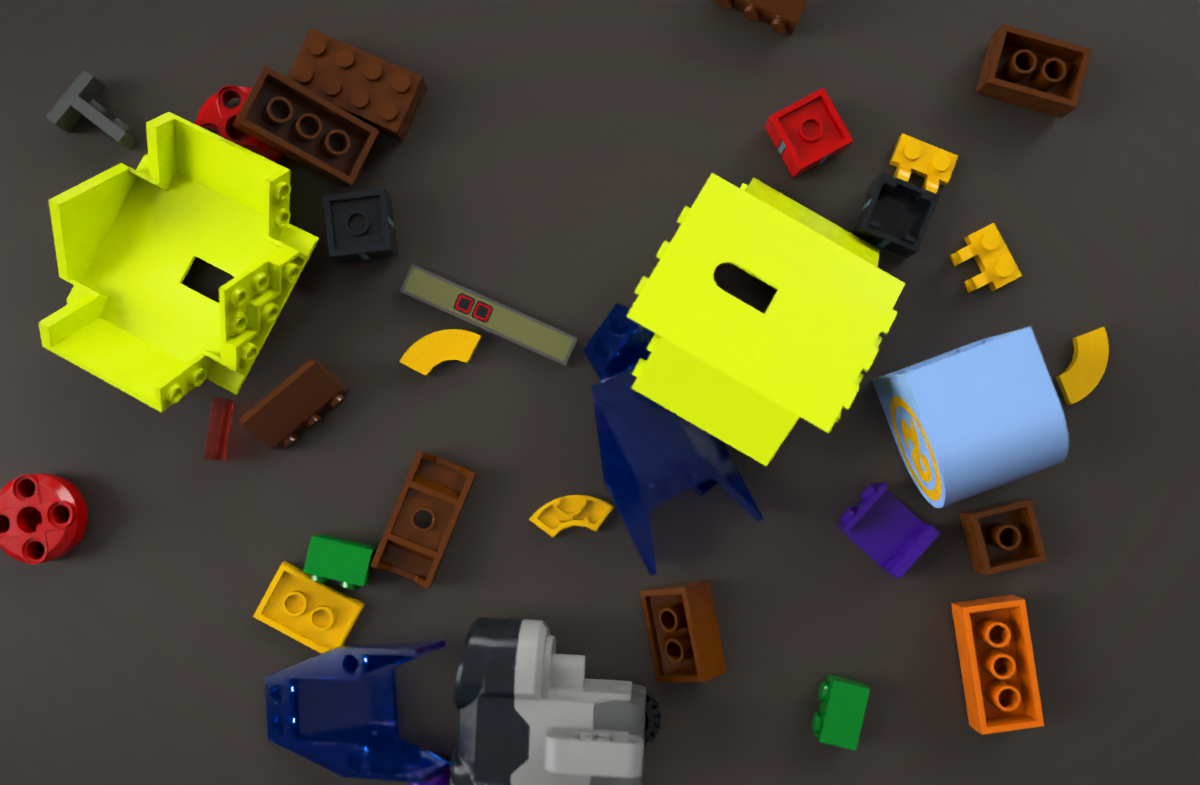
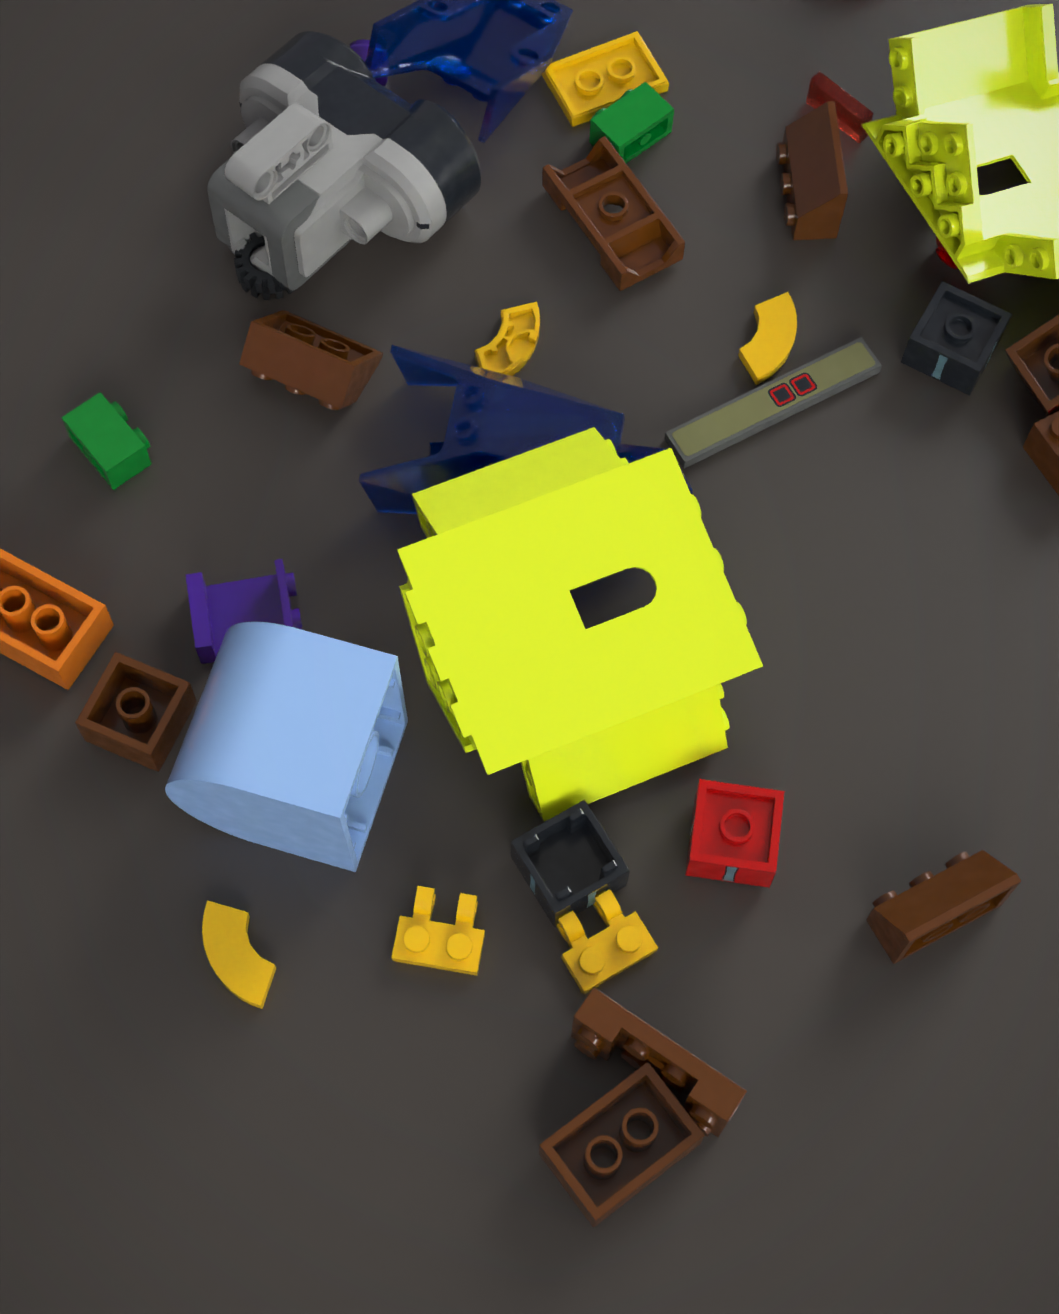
camera: 130 degrees right, 20 degrees down
(977, 118) = (605, 1025): none -> reddish brown piece

